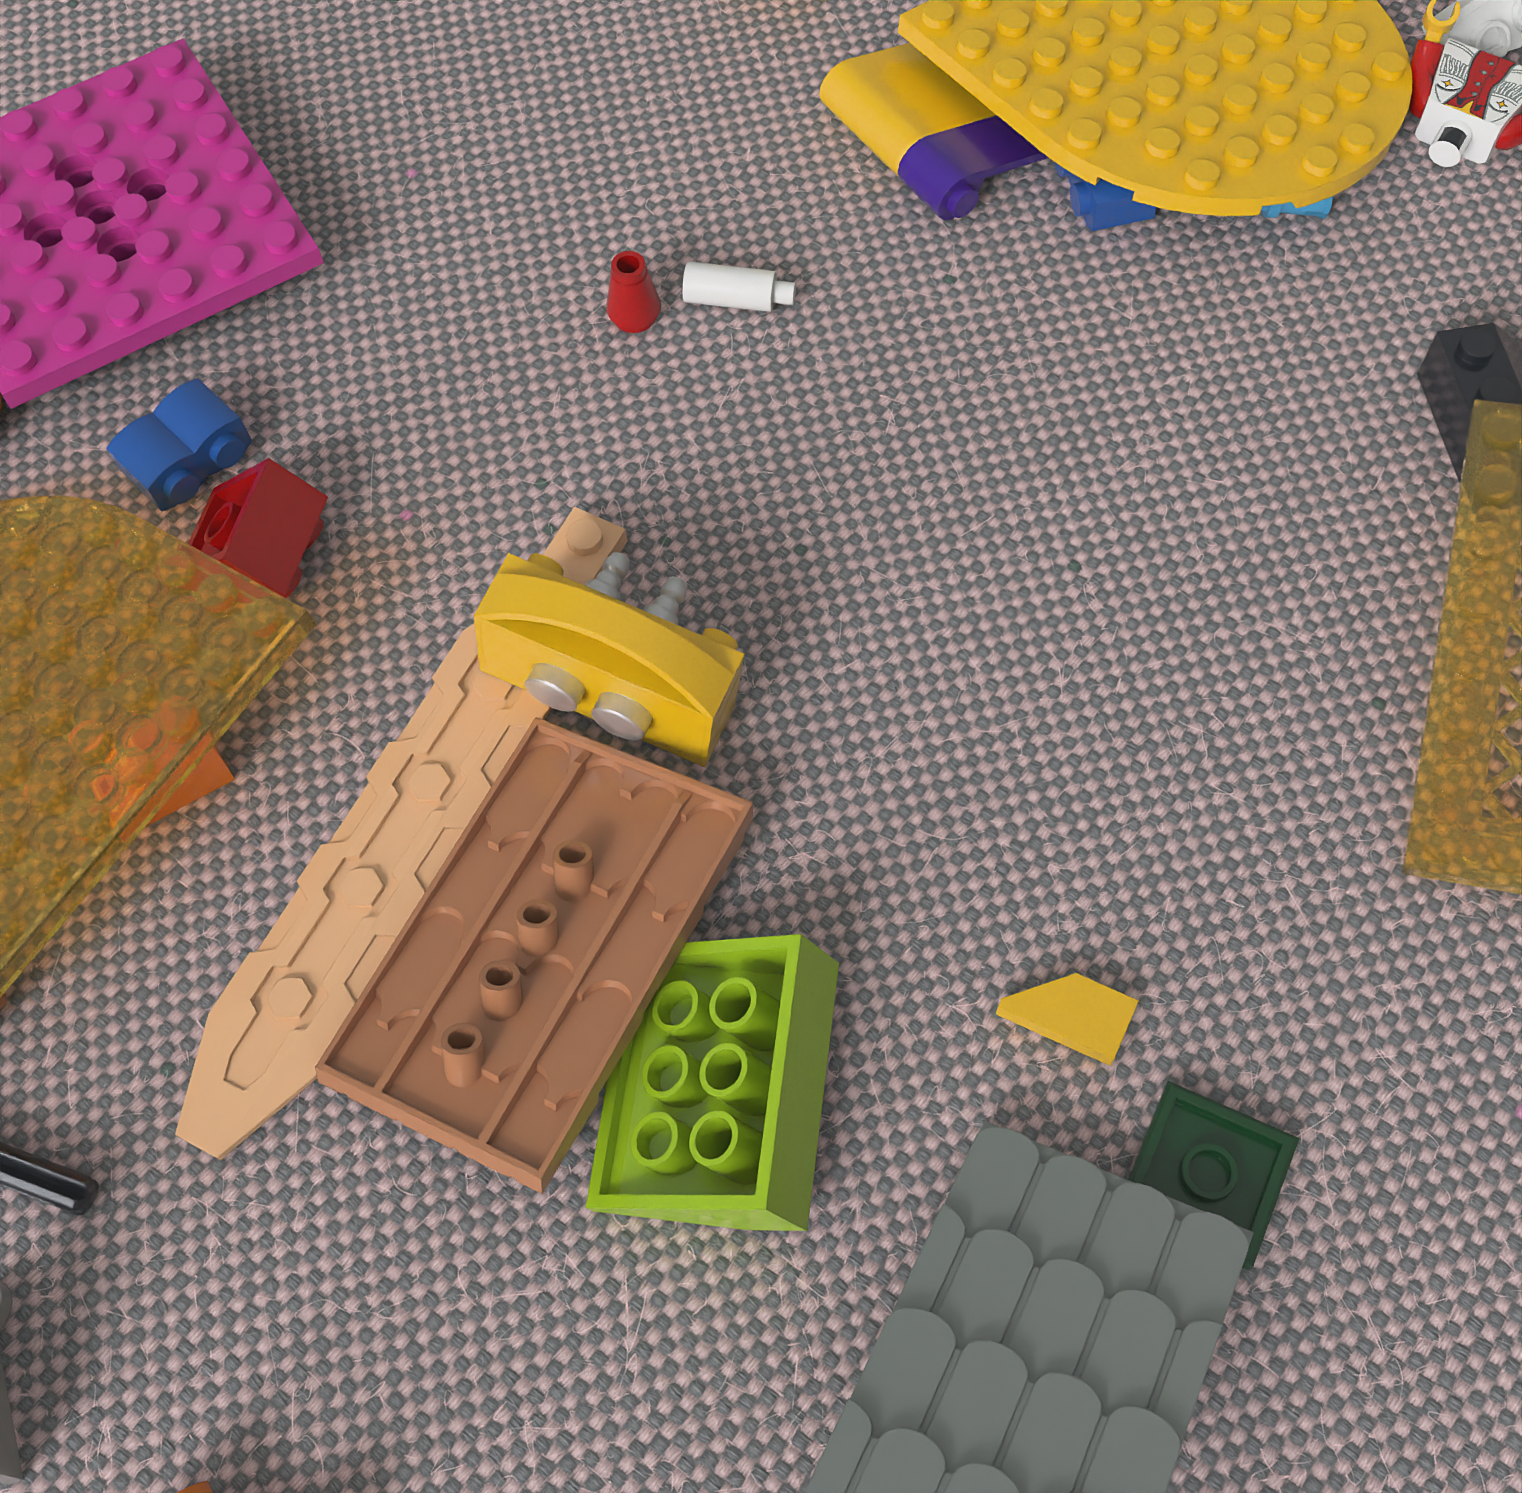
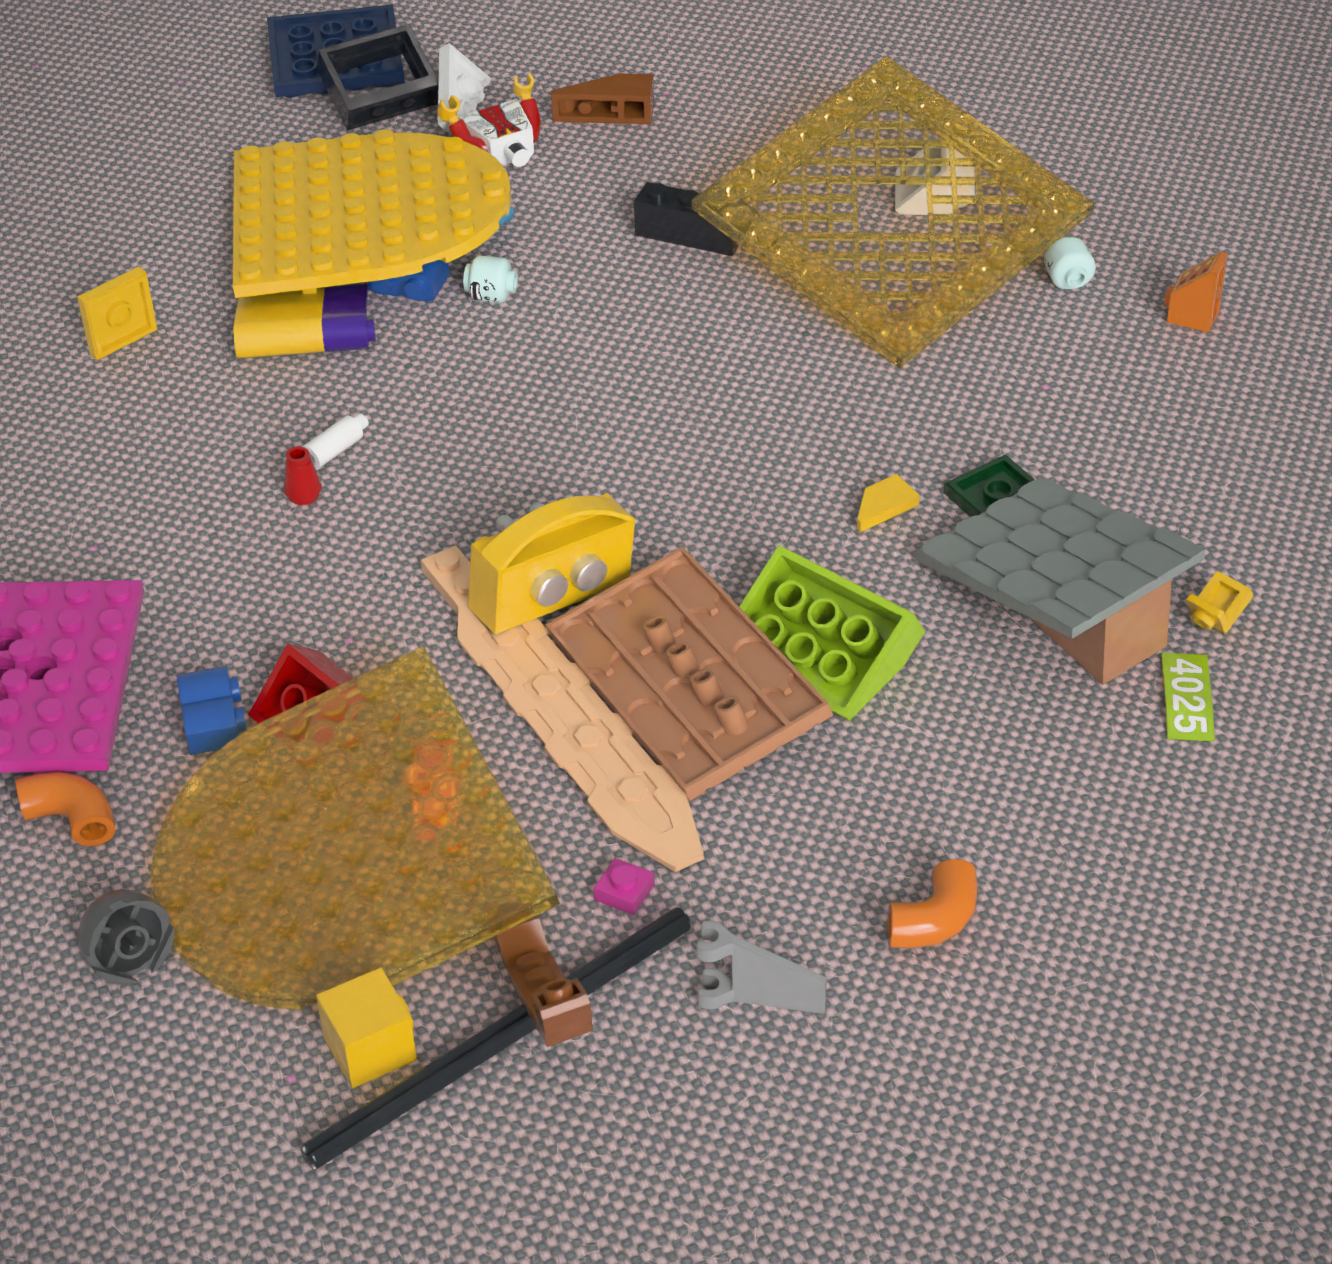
camera: 60 degrees left, 20 degrees down
(117, 1087) = (624, 886): none -> dark pink plate
(1166, 265) = (490, 279): none -> light aqua head

